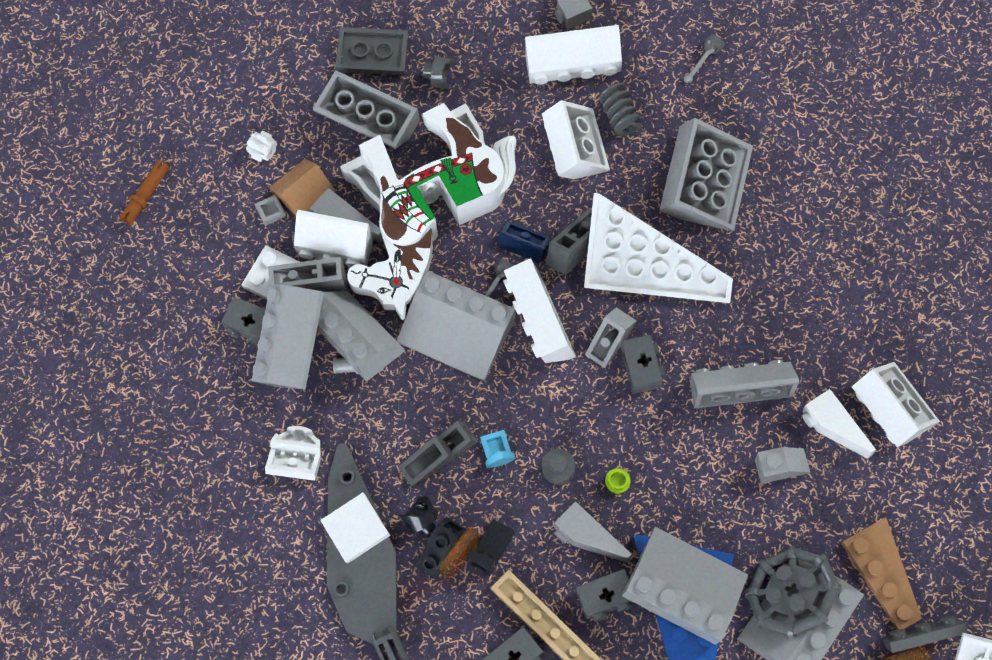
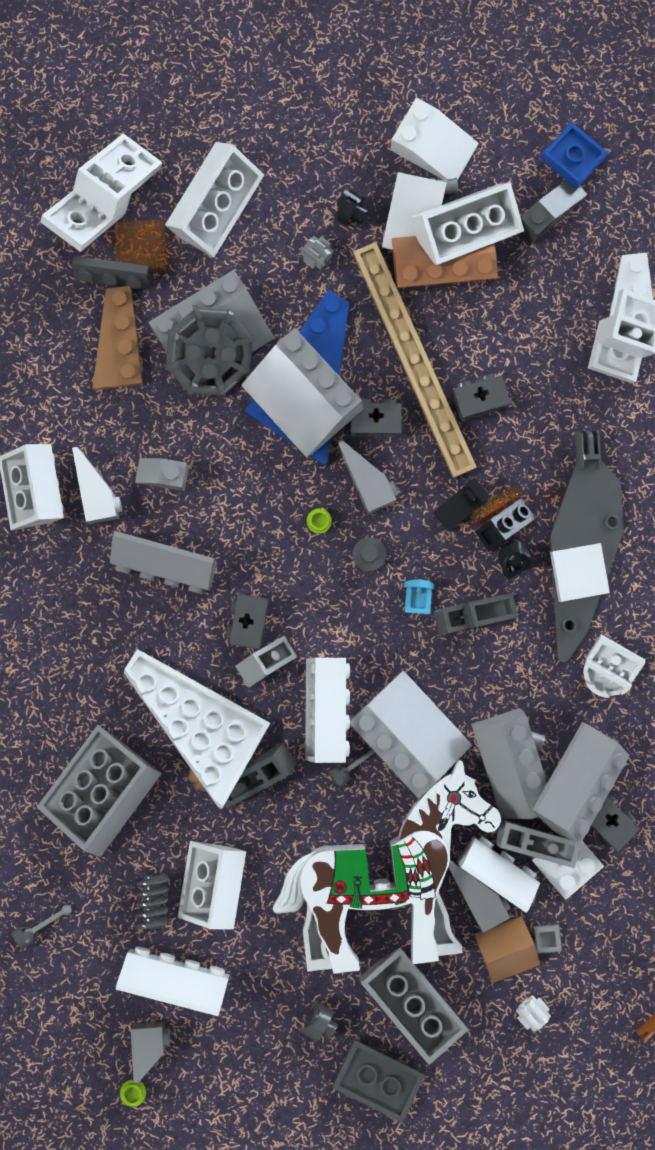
camera: 165 degrees left, 15 degrees up
(523, 241) = (307, 798): dark blue slope -> none

